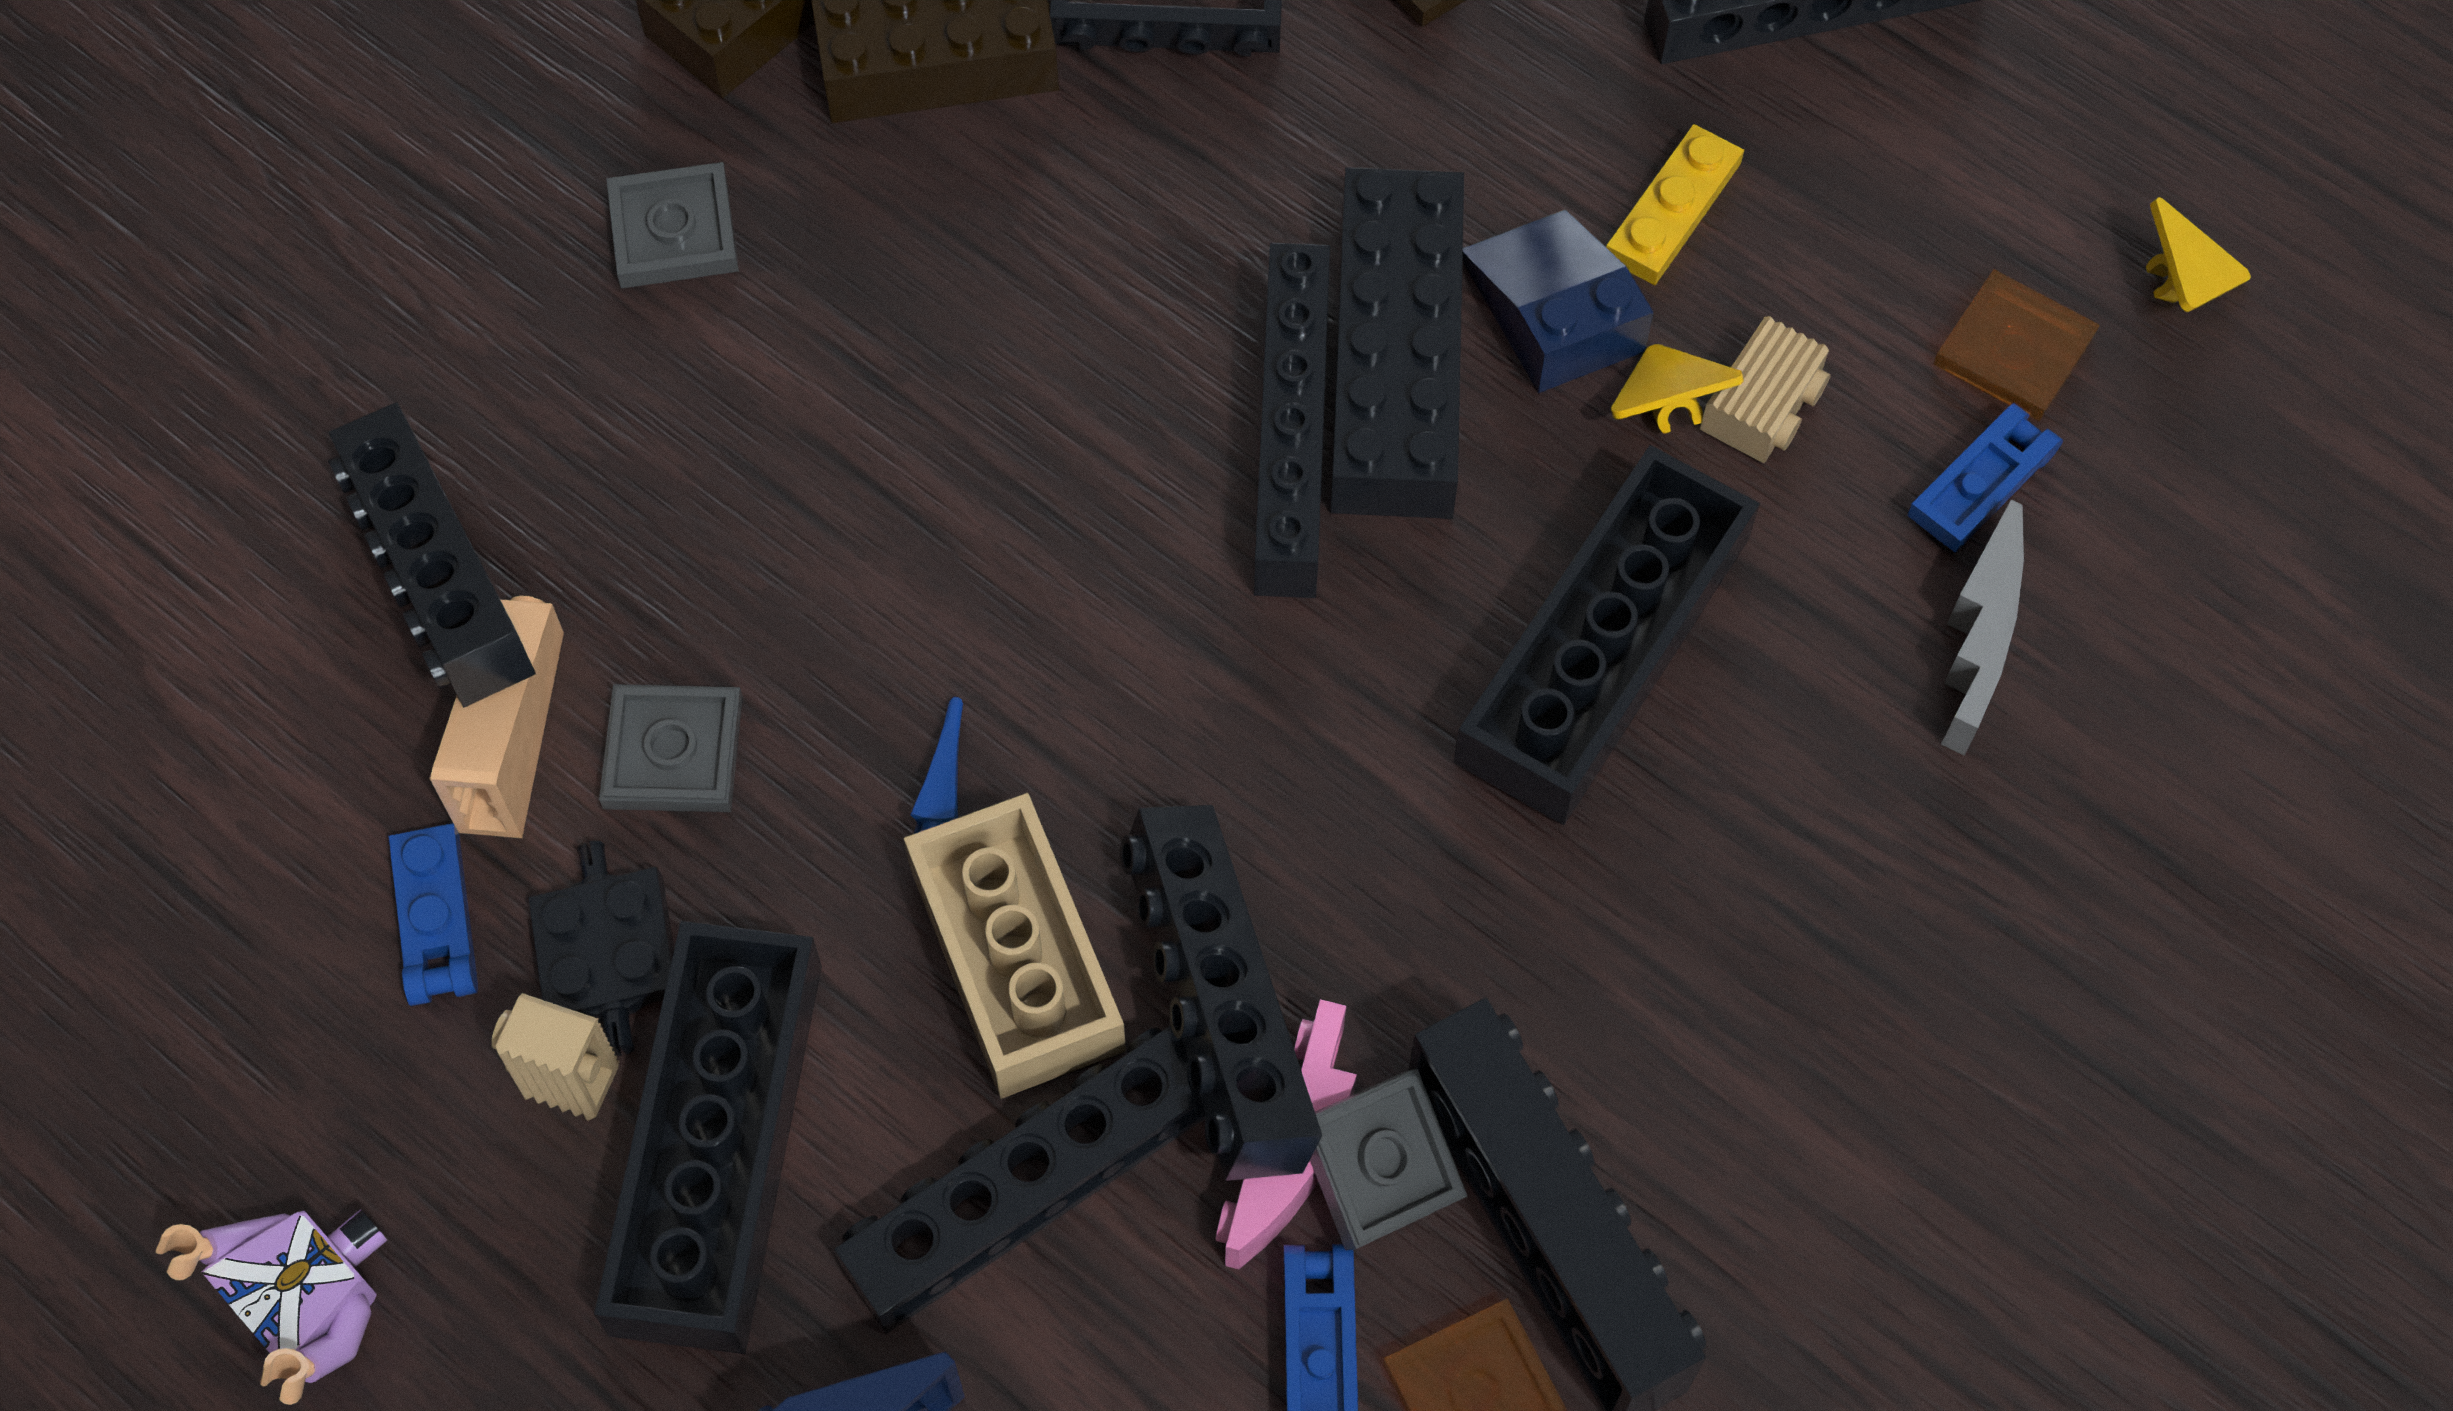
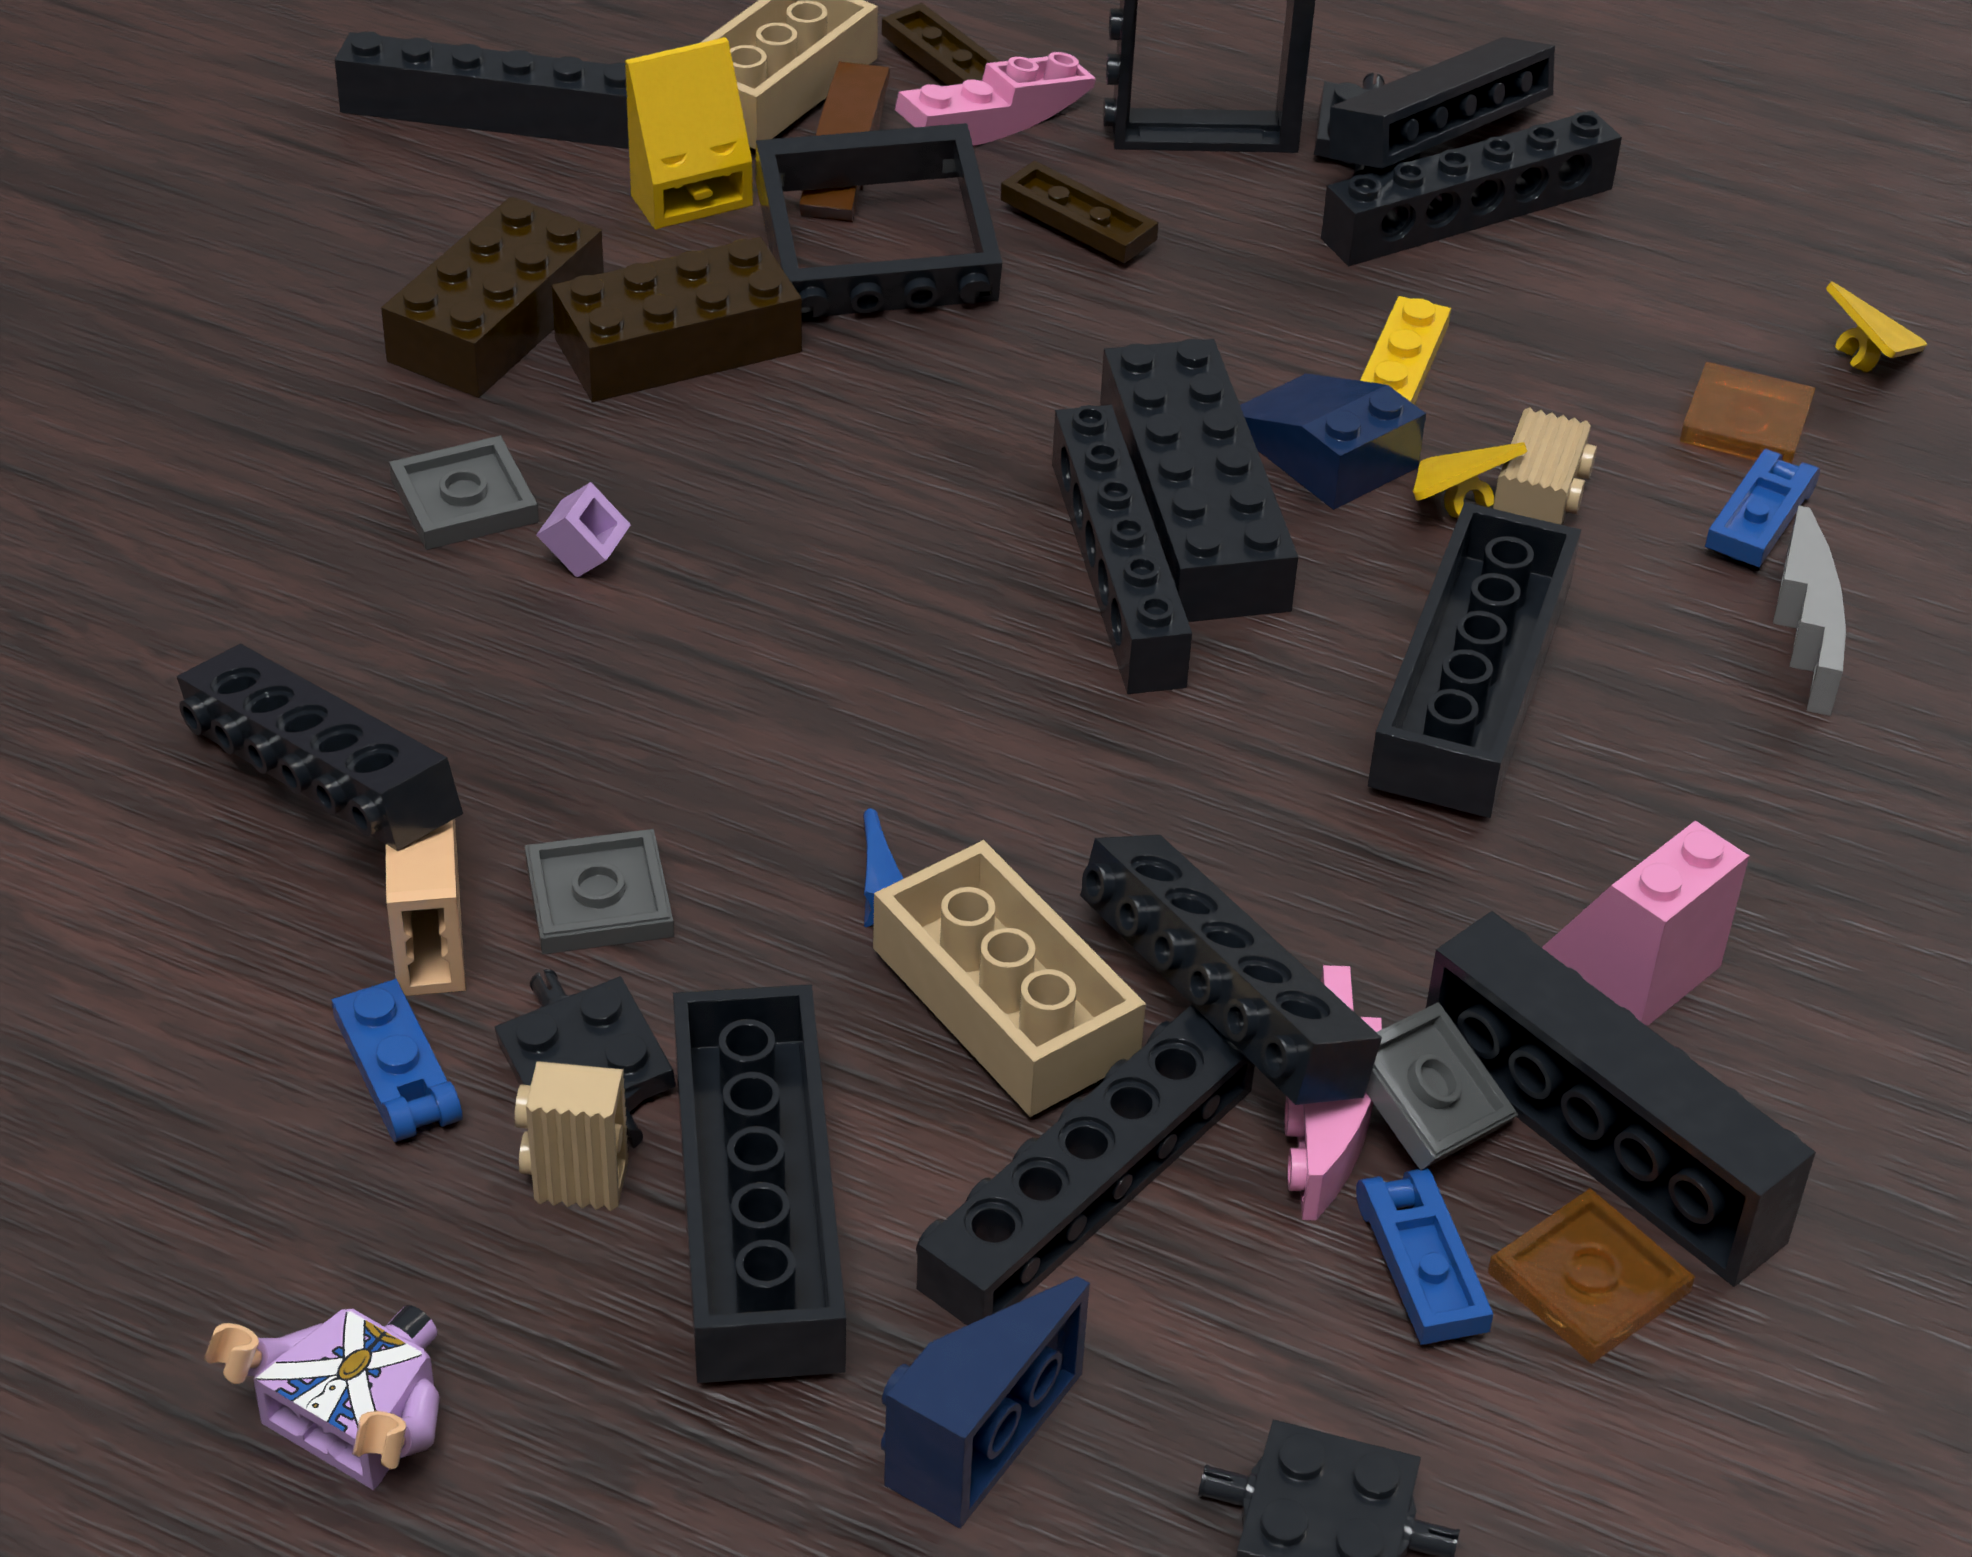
camera: 15 degrees left, 20 degrees down
(781, 303) = (583, 529): none -> lavender plate
(1662, 1015) = (1658, 924): none -> bright pink slope

